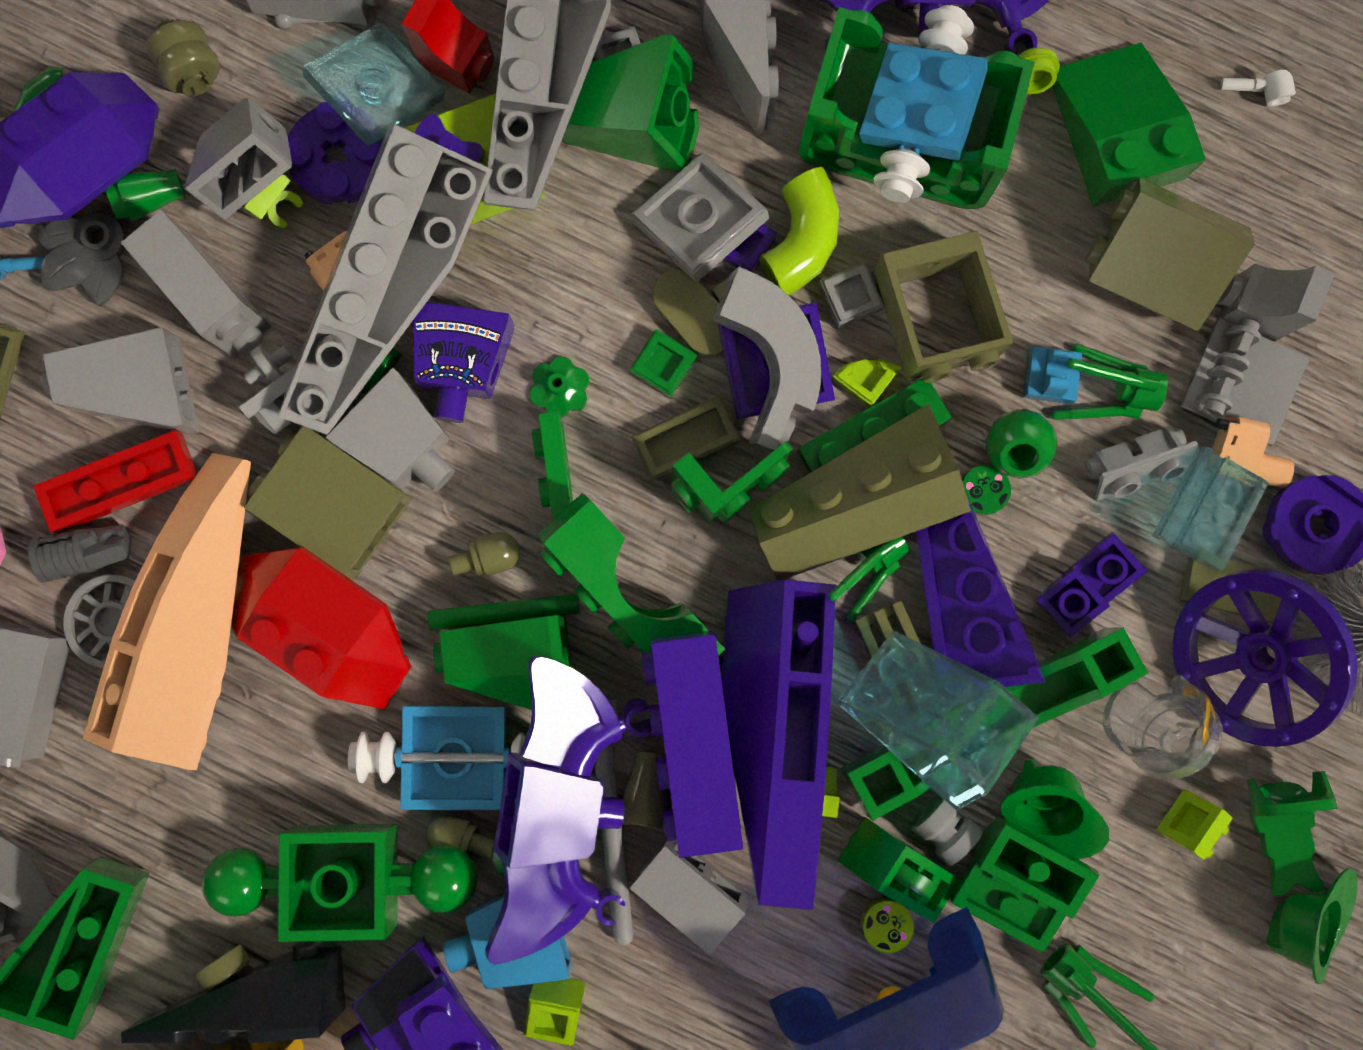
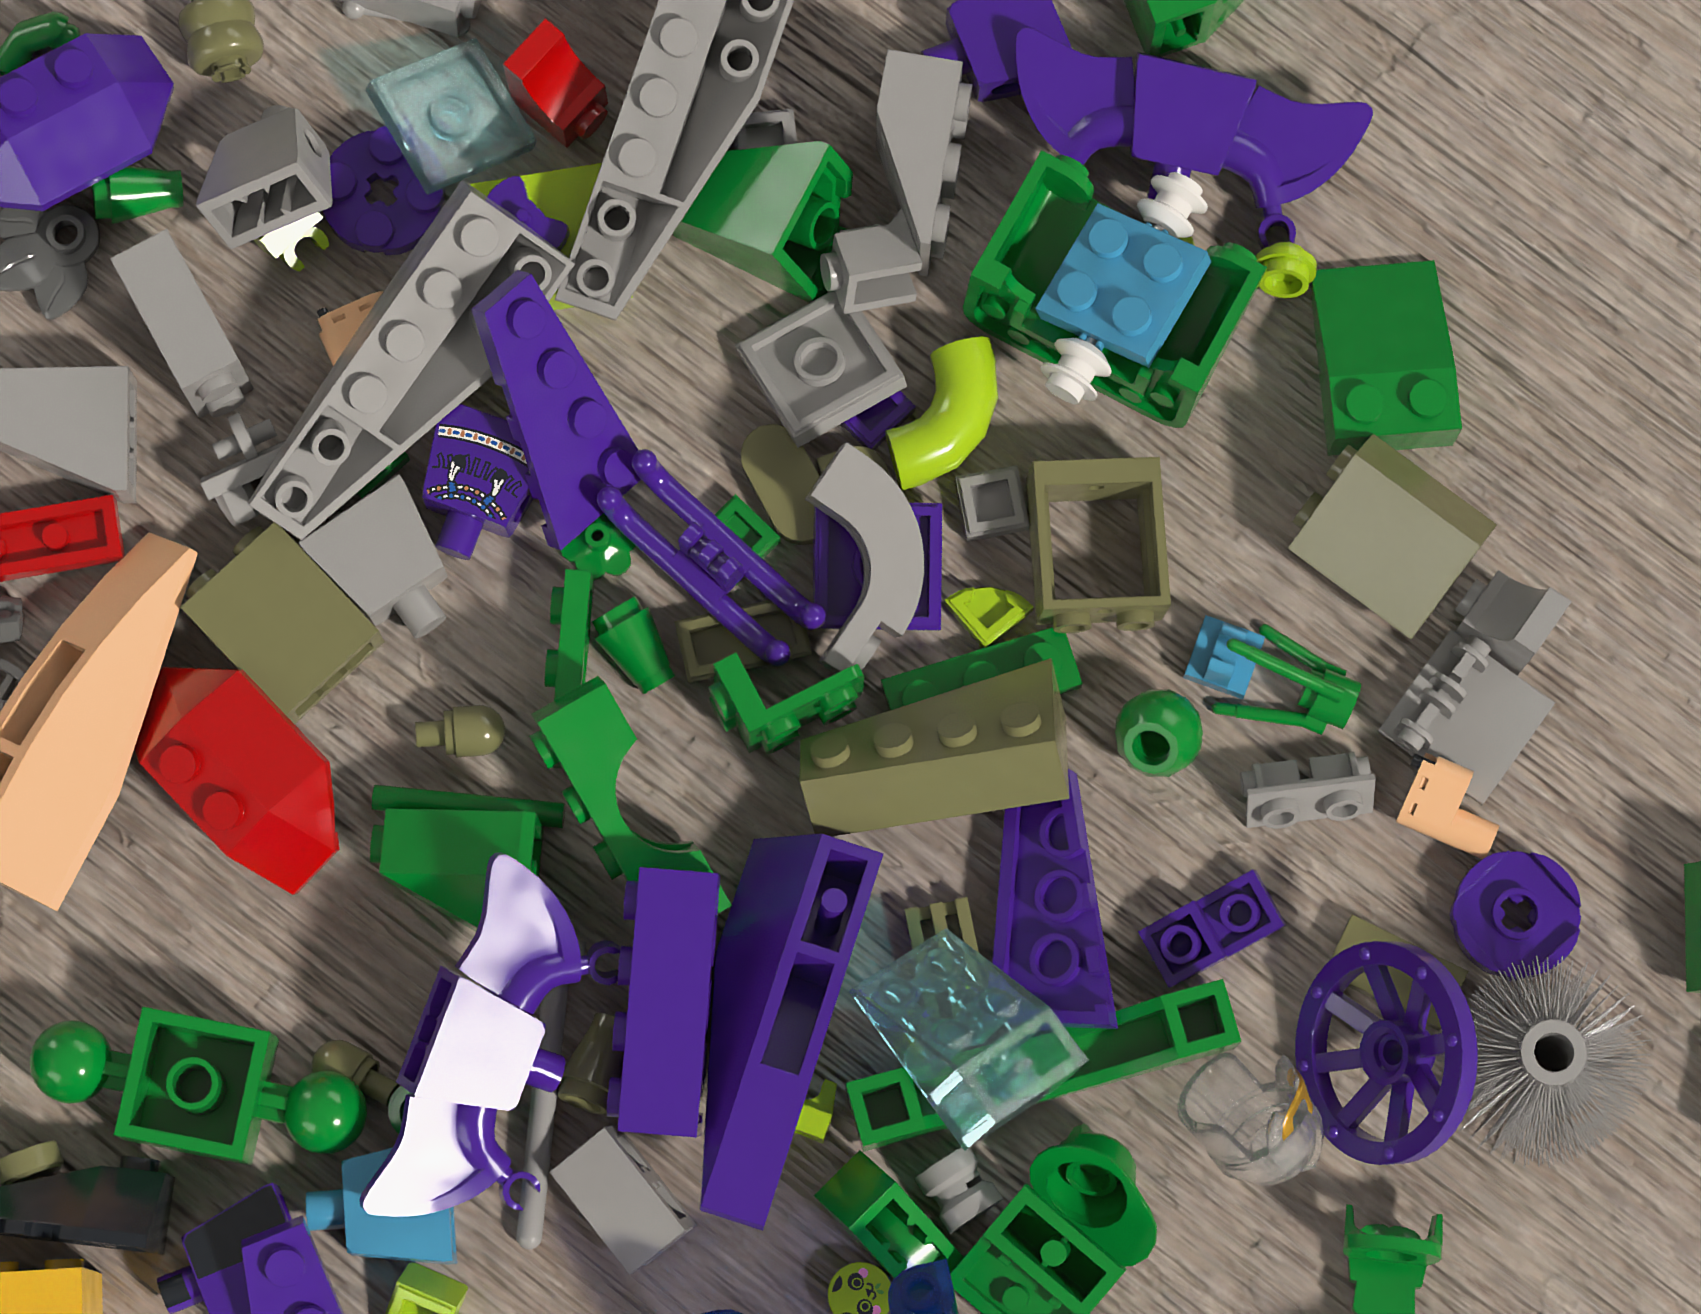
camera: 15 degrees right, 5 degrees down
(446, 757) = (360, 969): dark azure plate -> none
(503, 288) = (555, 407): none -> dark purple wing
(604, 460) = (634, 644): none -> green cone
(648, 384) = (709, 560): none -> dark purple piece
(721, 130) = (872, 266): none -> light grey window
(878, 559) = (946, 835): green plant -> none
(986, 489) = (1105, 782): green tile -> none
(1194, 824) = (1270, 1251): lime tile -> none
(1210, 509) = (1376, 863): clear light blue plate -> none
(1276, 85) = (1591, 349): white hand -> none

